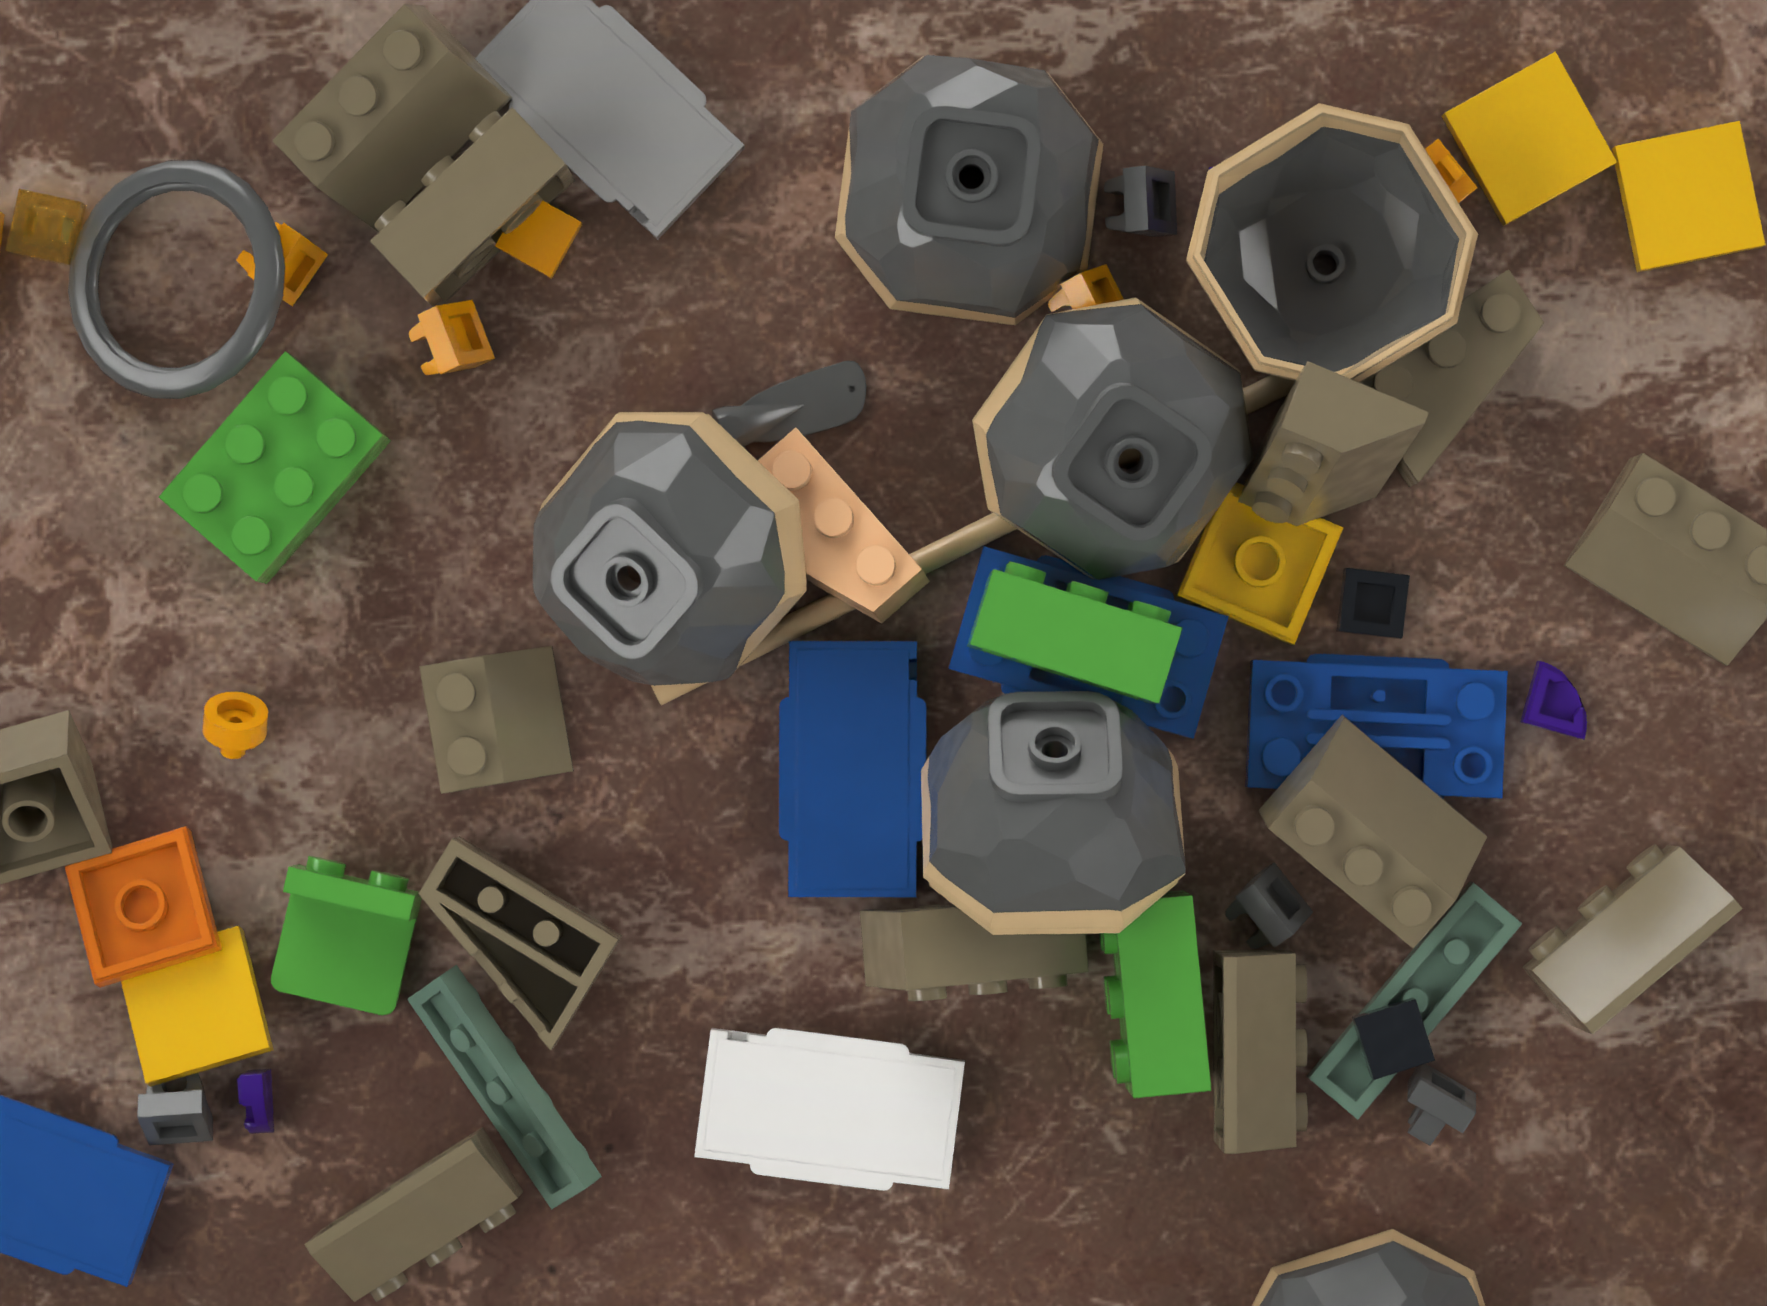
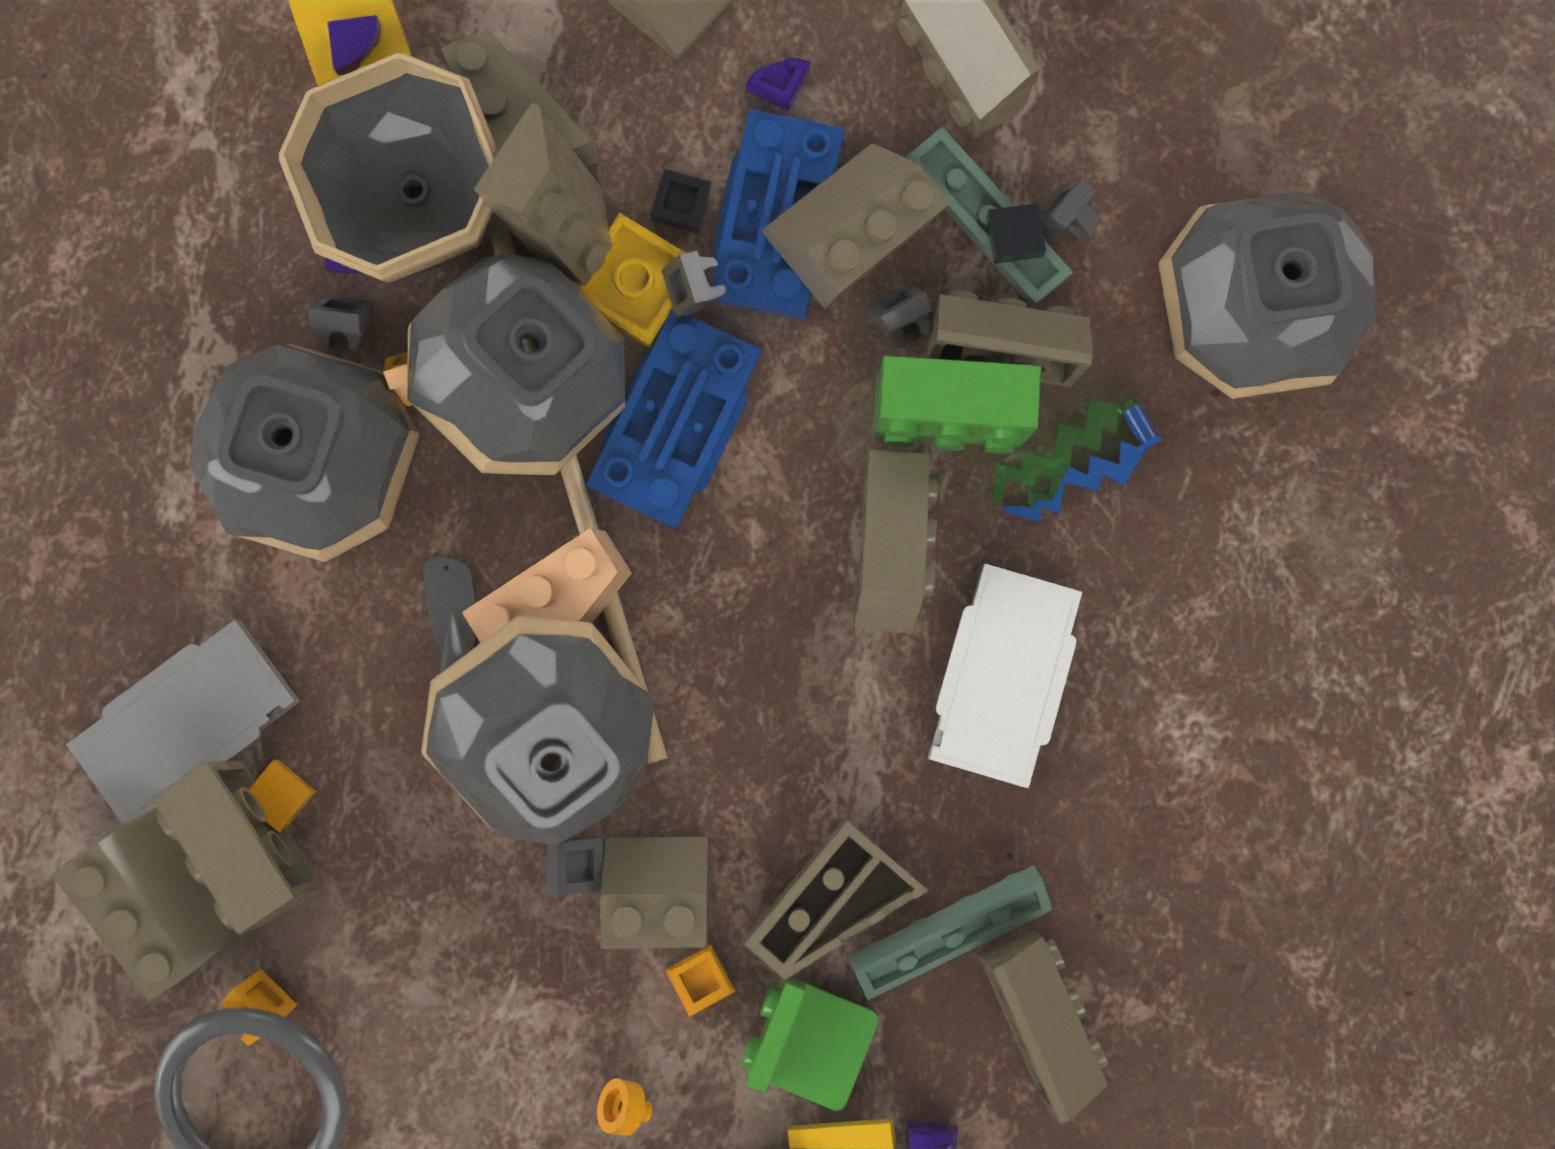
camera: 80 degrees left, 5 degrees down
(274, 468) = (421, 1042): bright green brick -> none
(399, 790) = (700, 980): none -> light orange tile
(453, 337) = (343, 877): light orange tile -> none
(511, 615) = (574, 865): none -> dark grey tile
(851, 768) = (742, 614): blue piece -> none
(1047, 838) = (802, 458): dark grey rock -> none
(1075, 633) = (662, 415): bright green brick -> none
(1104, 1138) = (1058, 468): none -> piece
(1256, 634) = (688, 283): none -> dark grey tile
(1507, 149) = (352, 41): none -> dark purple tile

